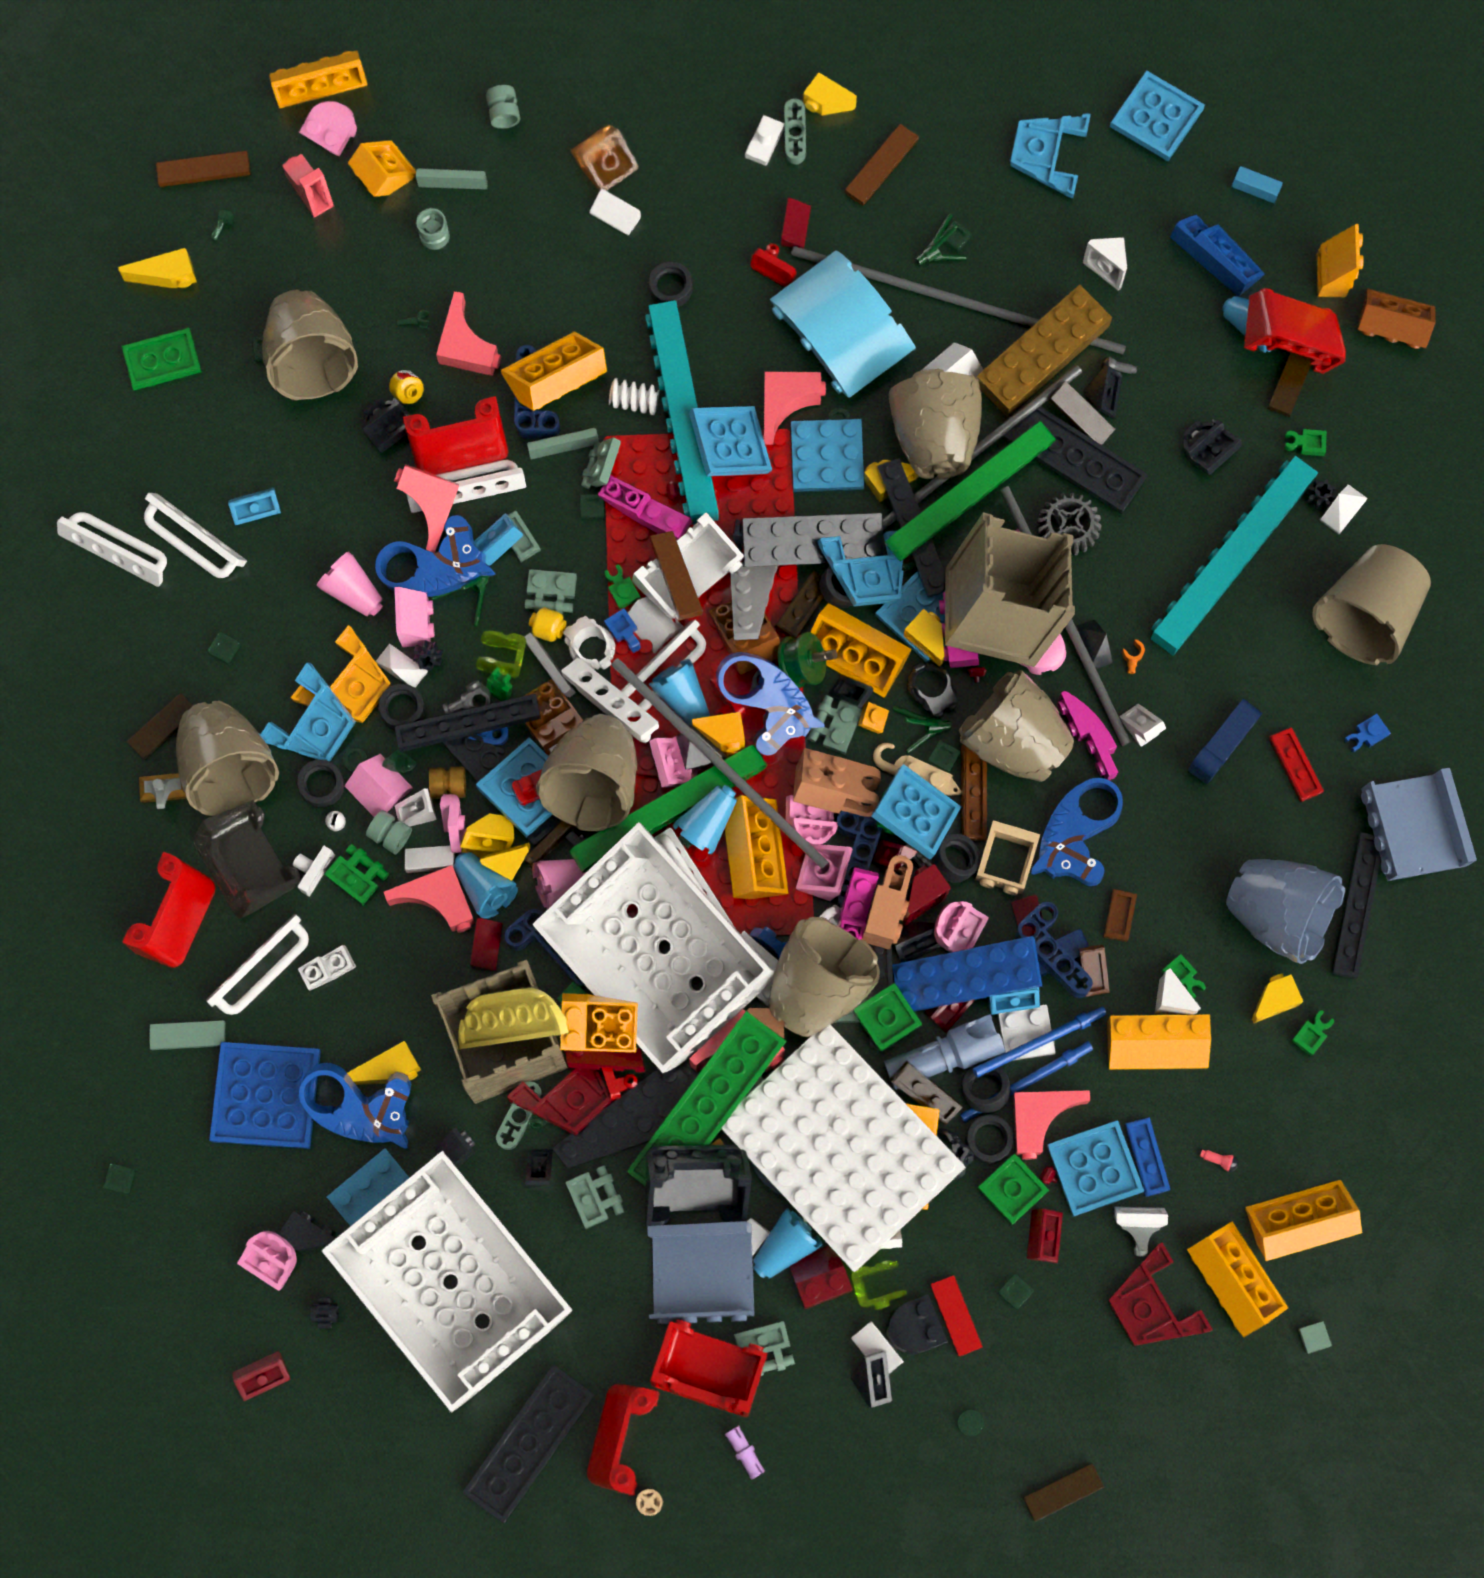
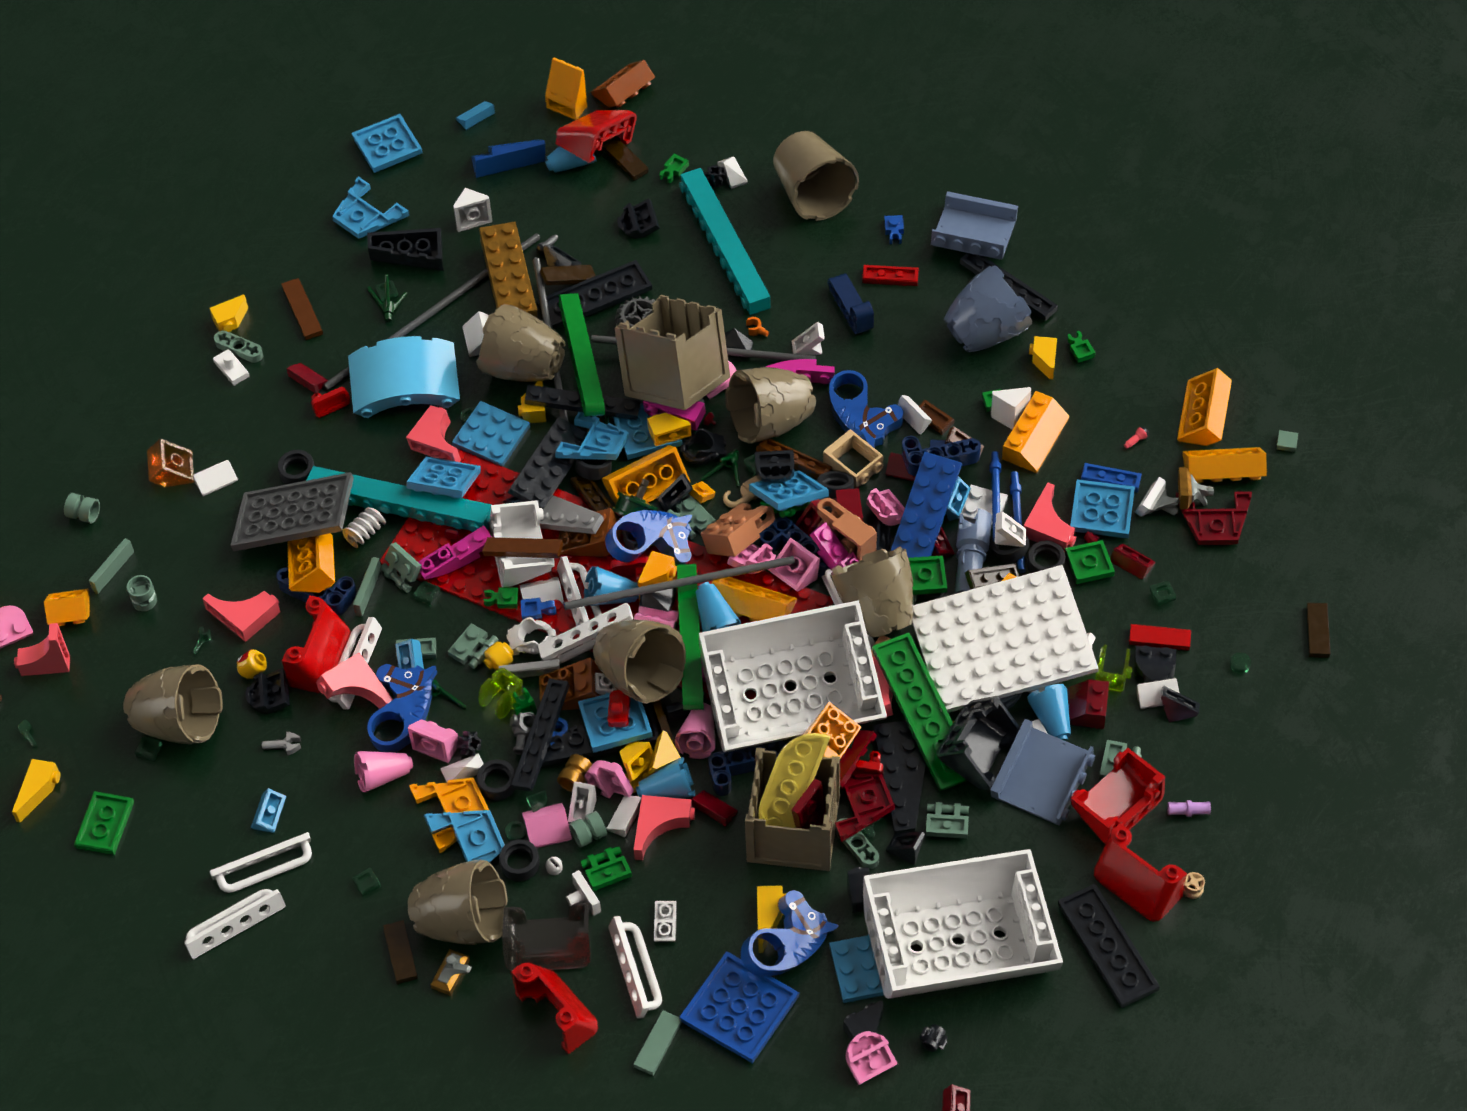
camera: 60 degrees left, 20 degrees down
(338, 473) = (285, 743): none -> light grey bar
(500, 1051) = (810, 807): none -> dark red tile
(601, 316) = (292, 511): none -> dark grey plate
(942, 779) = (774, 465): none -> black slope
(984, 1084) = (1009, 531): none -> white slope
(1022, 227) = (408, 247): none -> black wedge
(1107, 892) = (914, 414): none -> white slope
(1169, 1259) = (1190, 489): none -> piece

